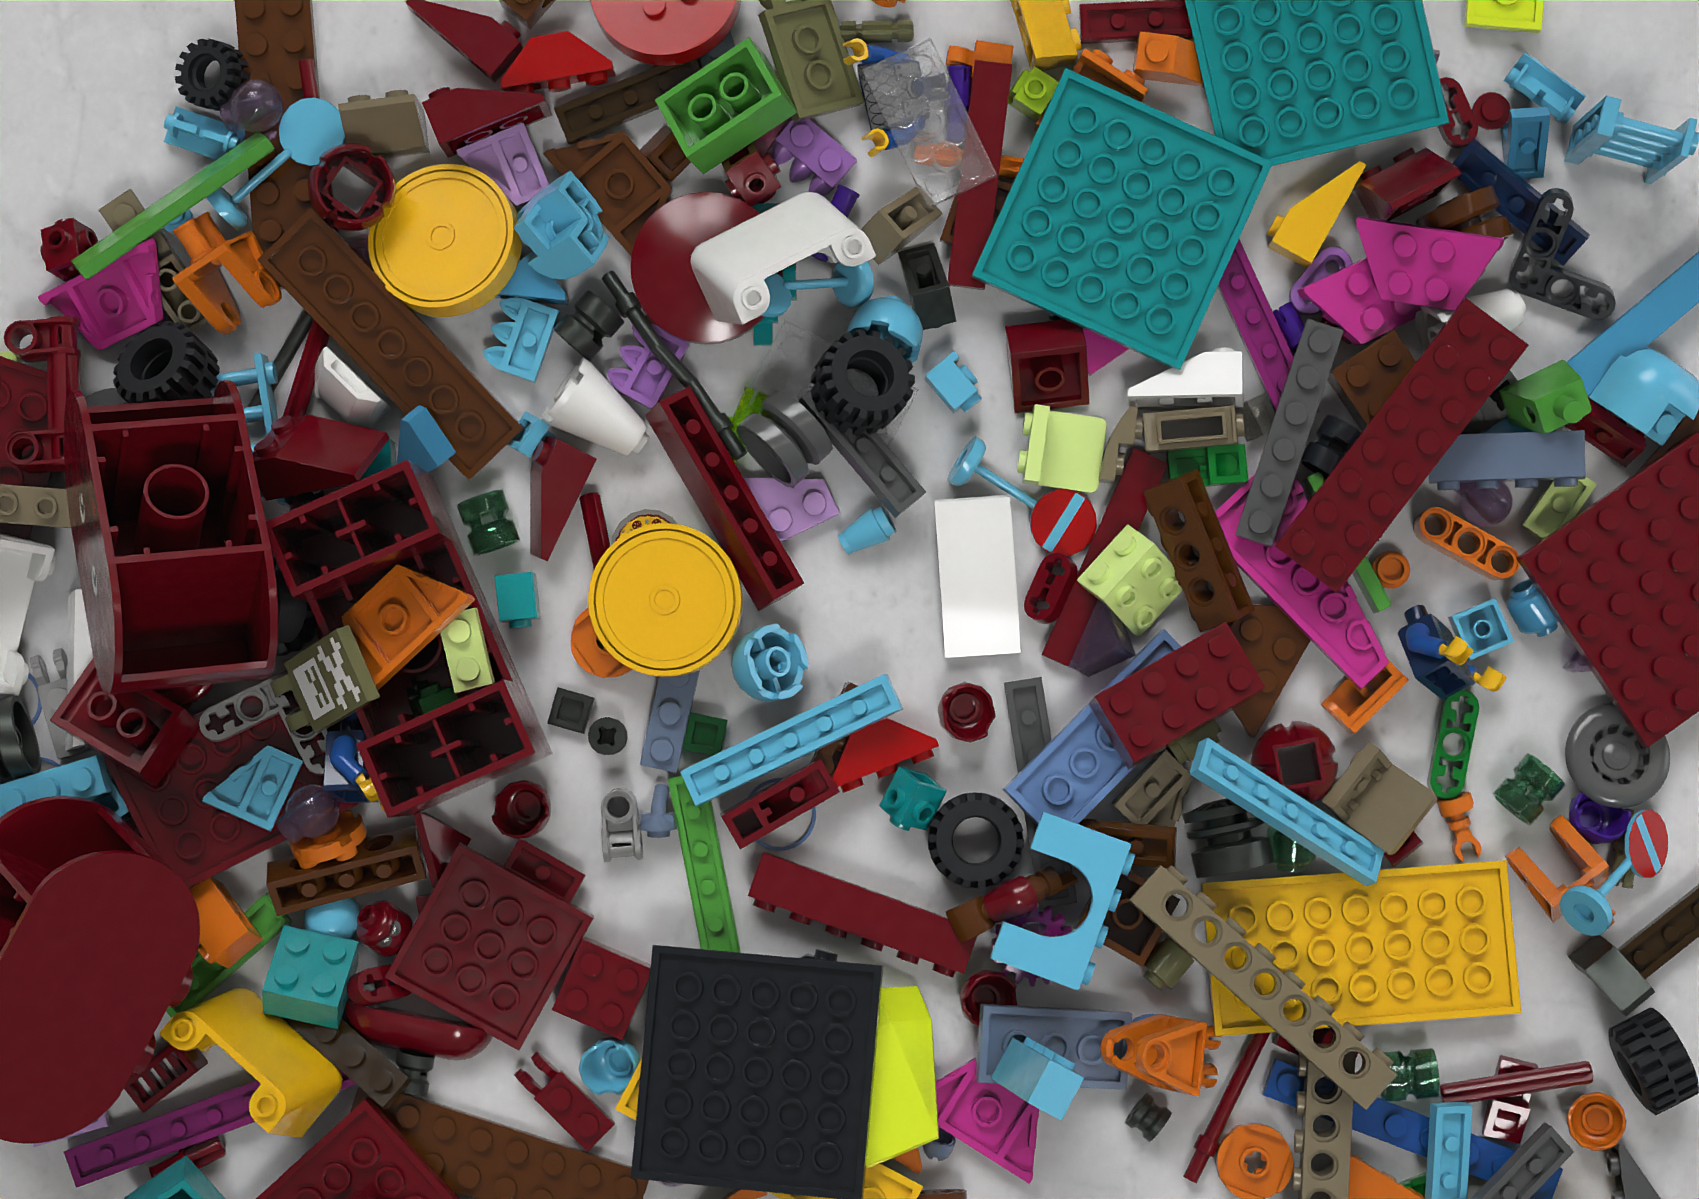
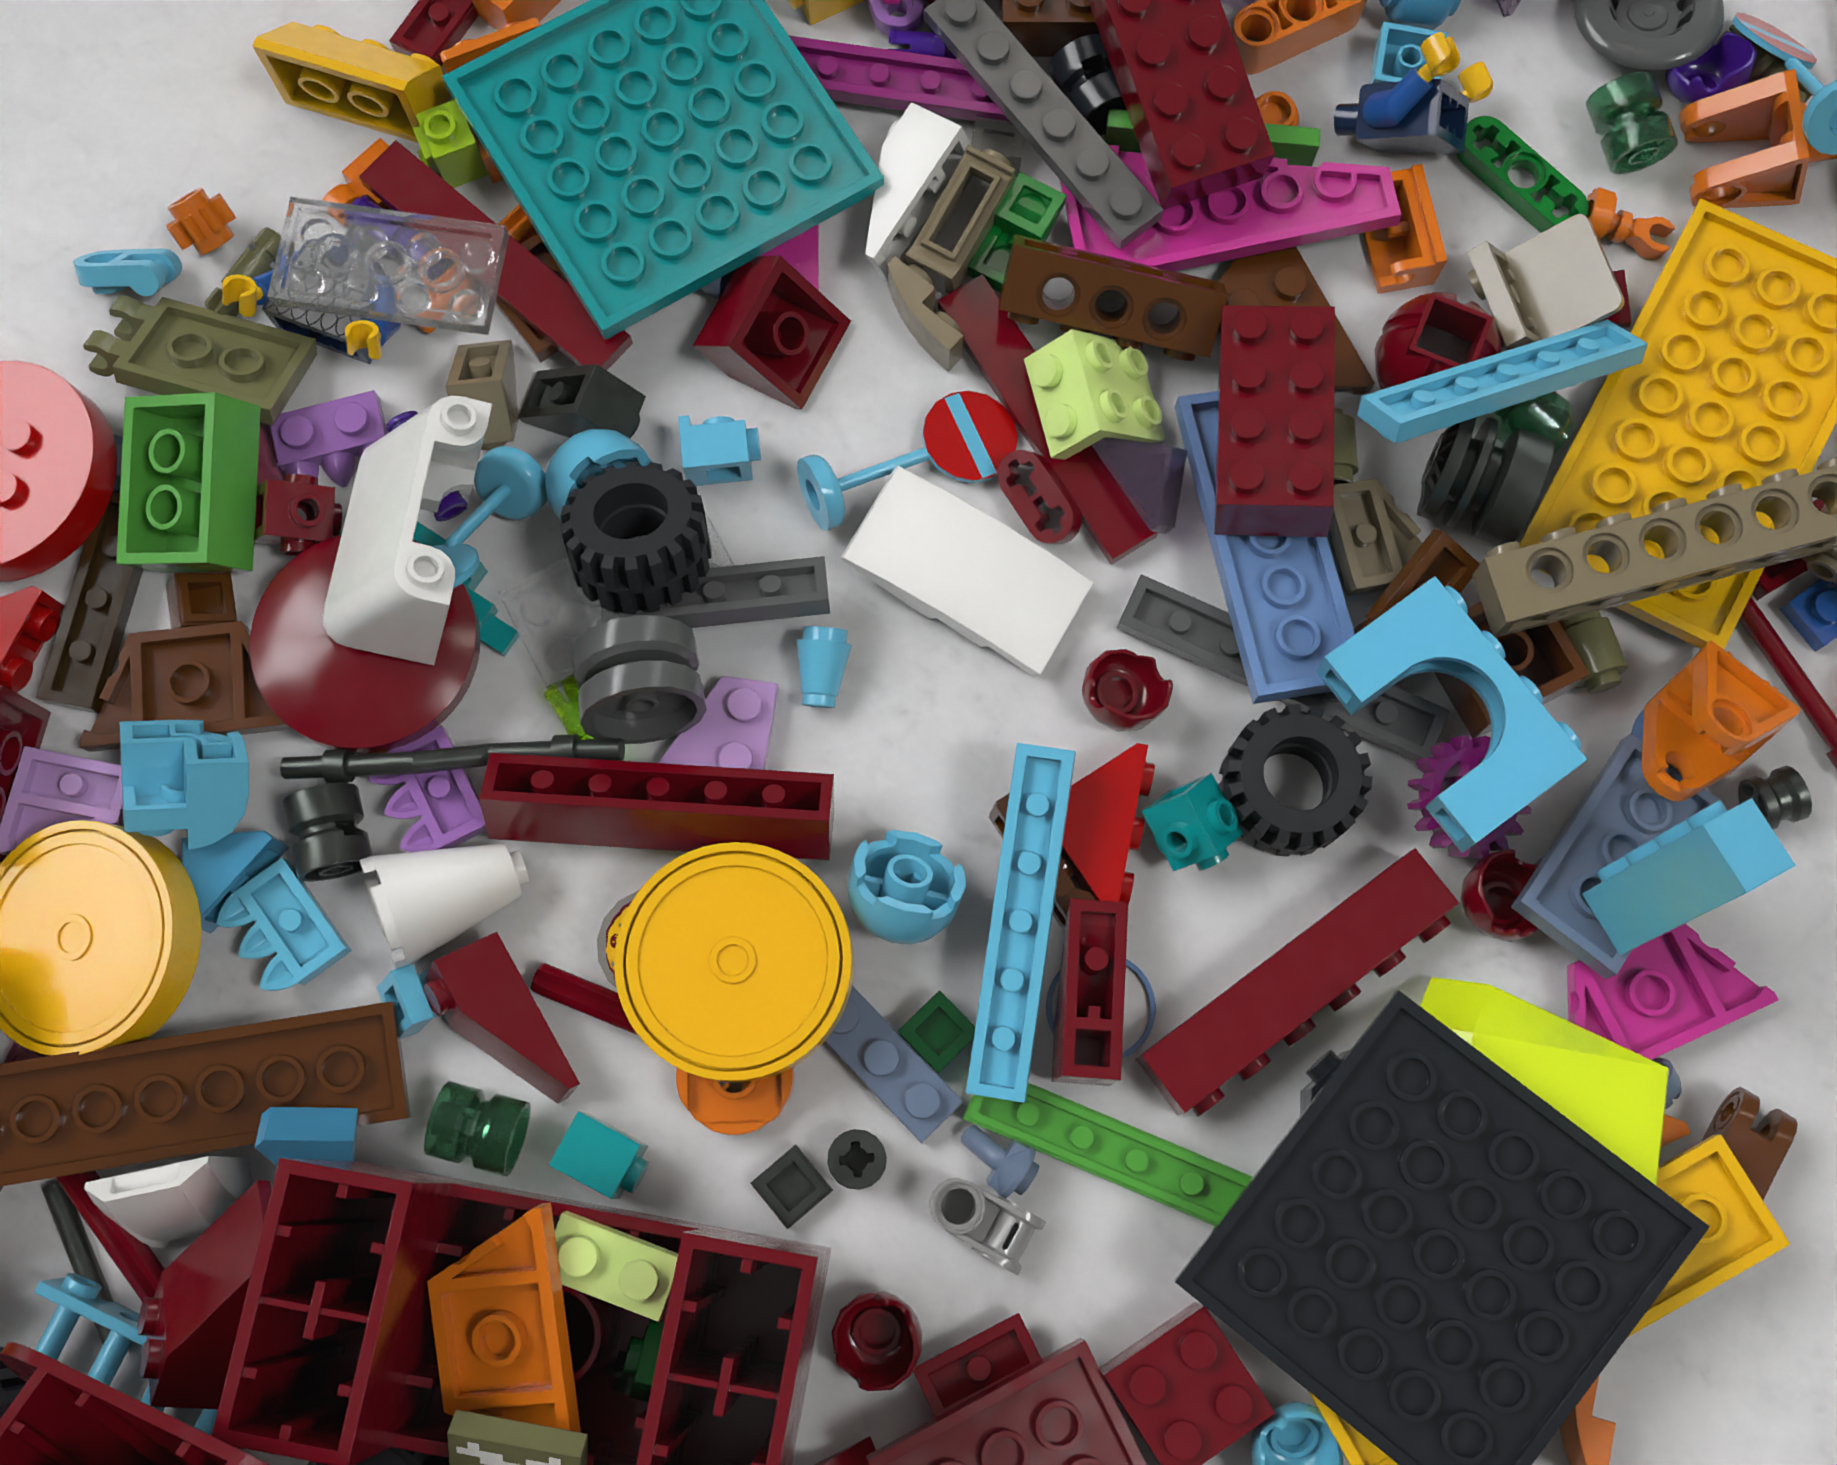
camera: 60 degrees left, 10 degrees down
(1006, 902) = (1403, 790): piece -> none
(1062, 450) = (882, 380): yellowish green bracket -> none

